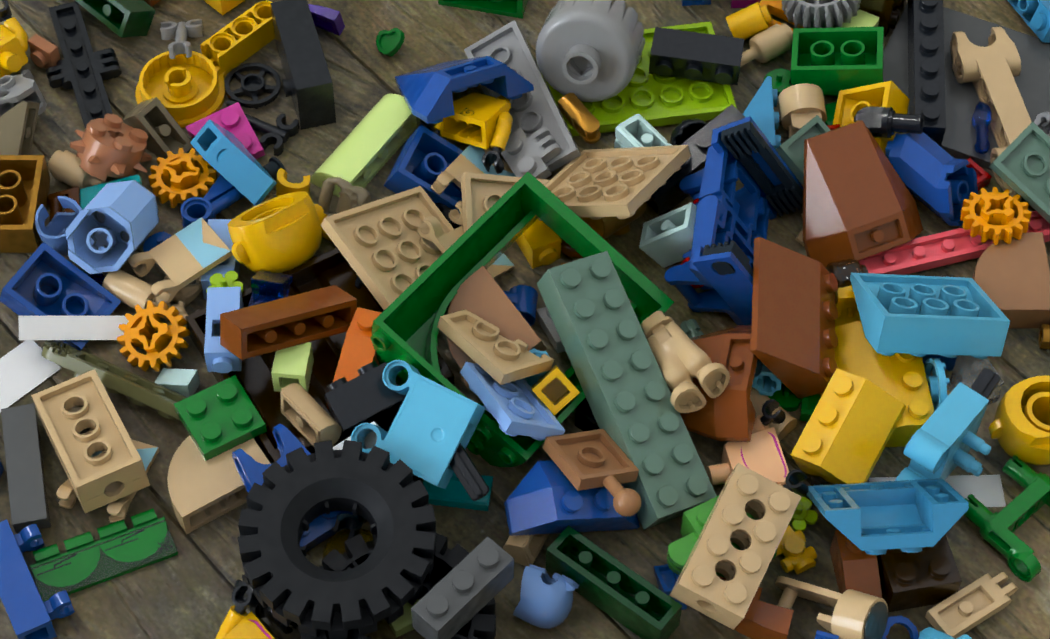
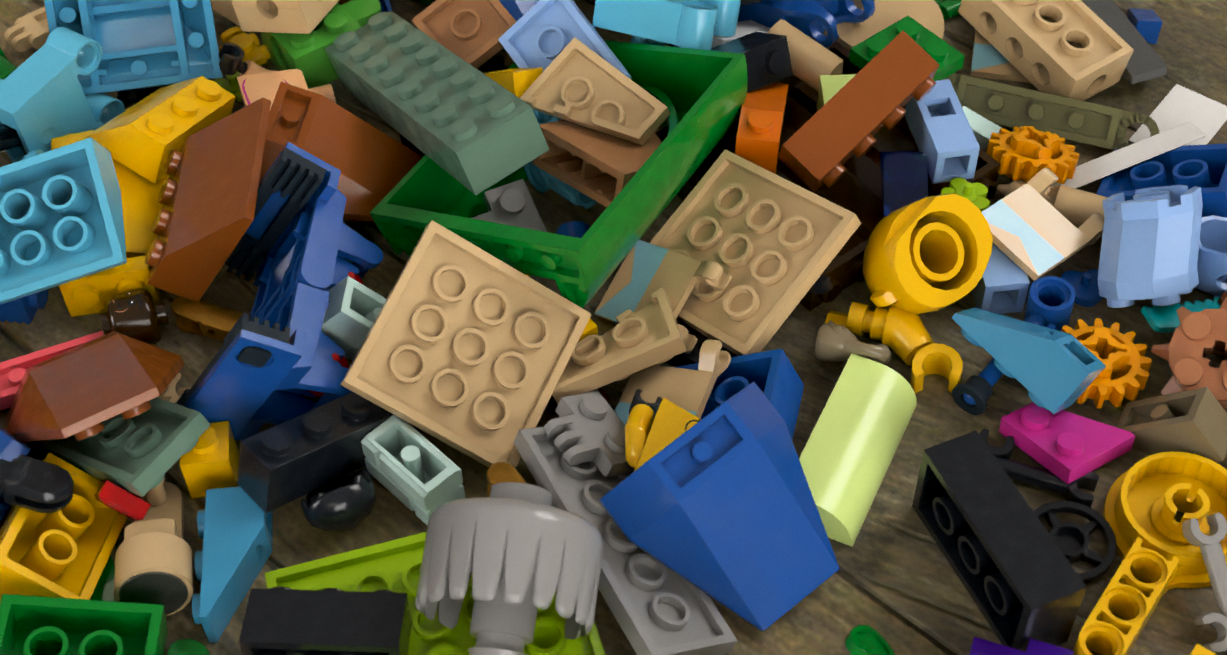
camera: 175 degrees right, 5 degrees down
(681, 362) = (358, 110): tan piece -> none

